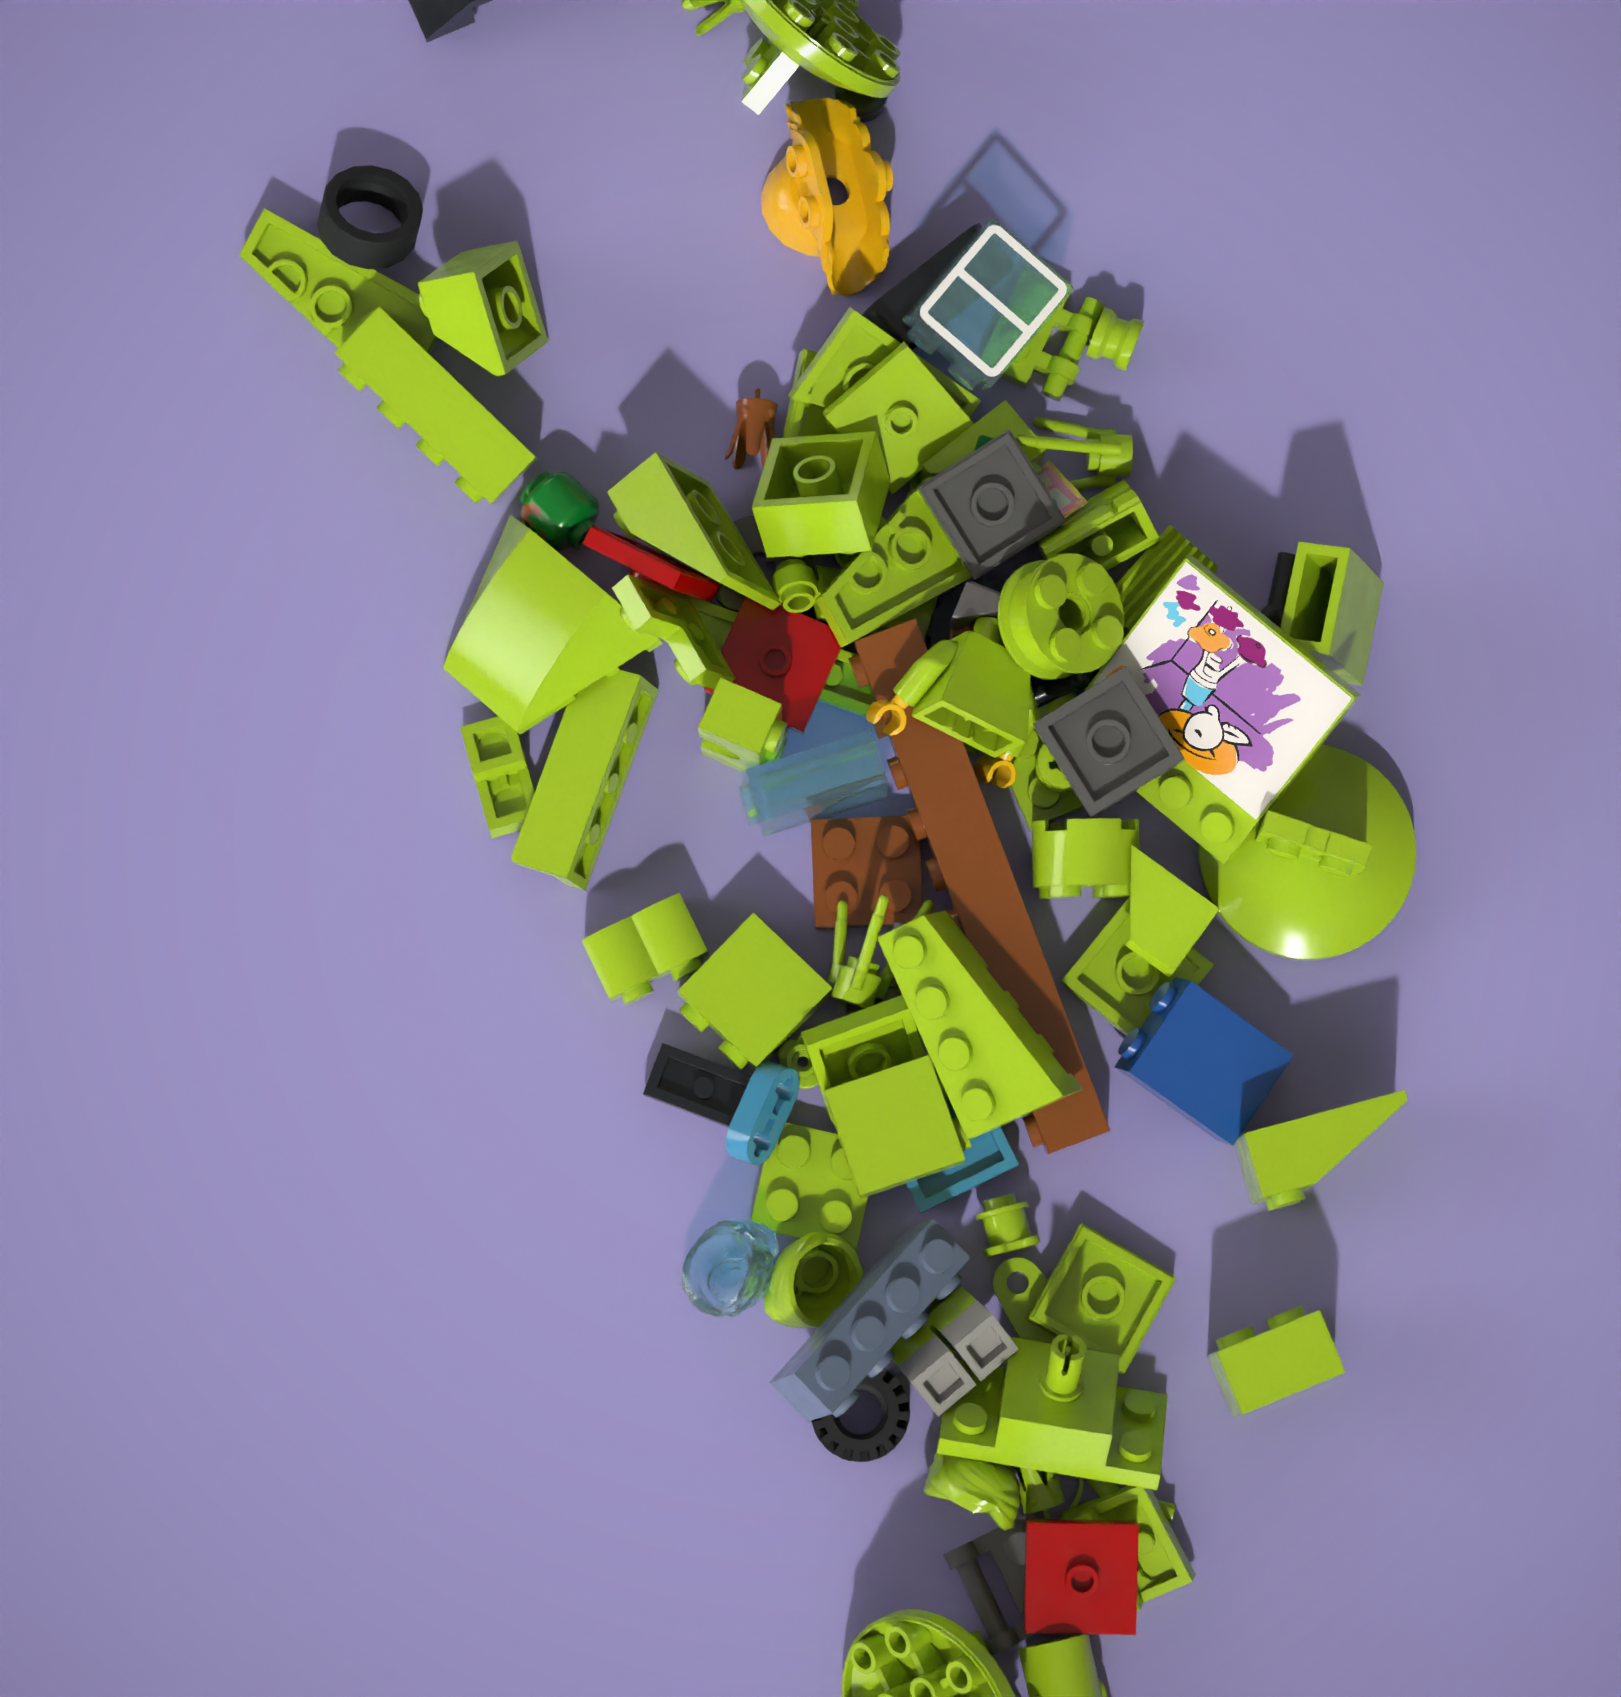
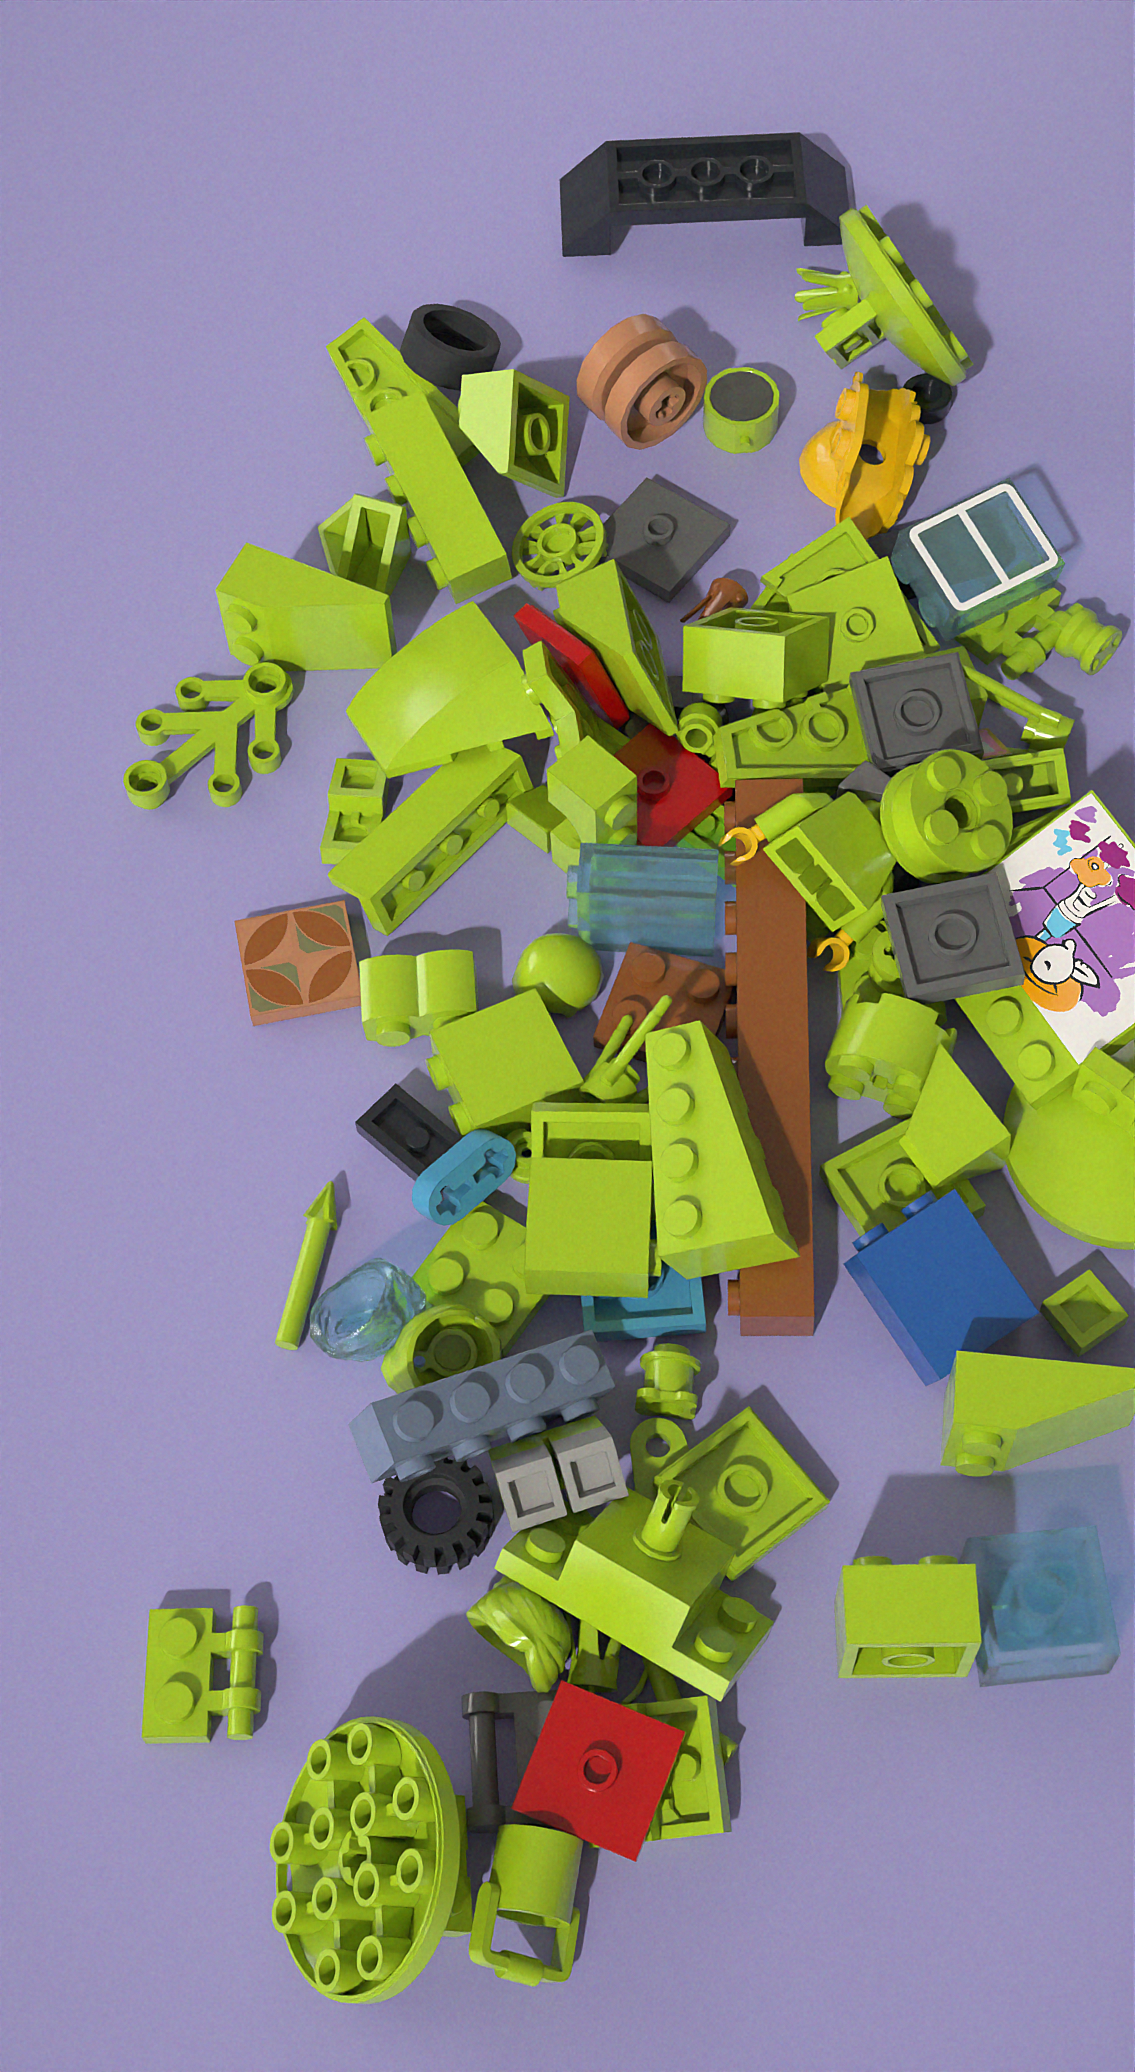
camera: 25 degrees right, 20 degrees down
(331, 737) = (212, 731): none -> lime plant
(361, 599) = (302, 615): none -> lime slope
(384, 489) = (367, 542): none -> lime slope
(518, 950) = (298, 963): none -> tile
(559, 509) = (501, 601): green head -> none
(573, 411) = (559, 544): none -> lime wheel
(583, 199) = (641, 381): none -> nougat wheel
(649, 1191) = (320, 1221): none -> lime piece
(661, 362) = (661, 539): none -> dark grey plate
(676, 714) = (534, 816): none -> lime slope
(686, 181) = (741, 410): none -> piece
(710, 1623) = (181, 1675): none -> lime plate
(757, 876) = (562, 971): none -> lime hair
(1327, 1029) = (1084, 1313): none -> lime plate
(1376, 1306) = (1042, 1606): none -> clear light blue brick

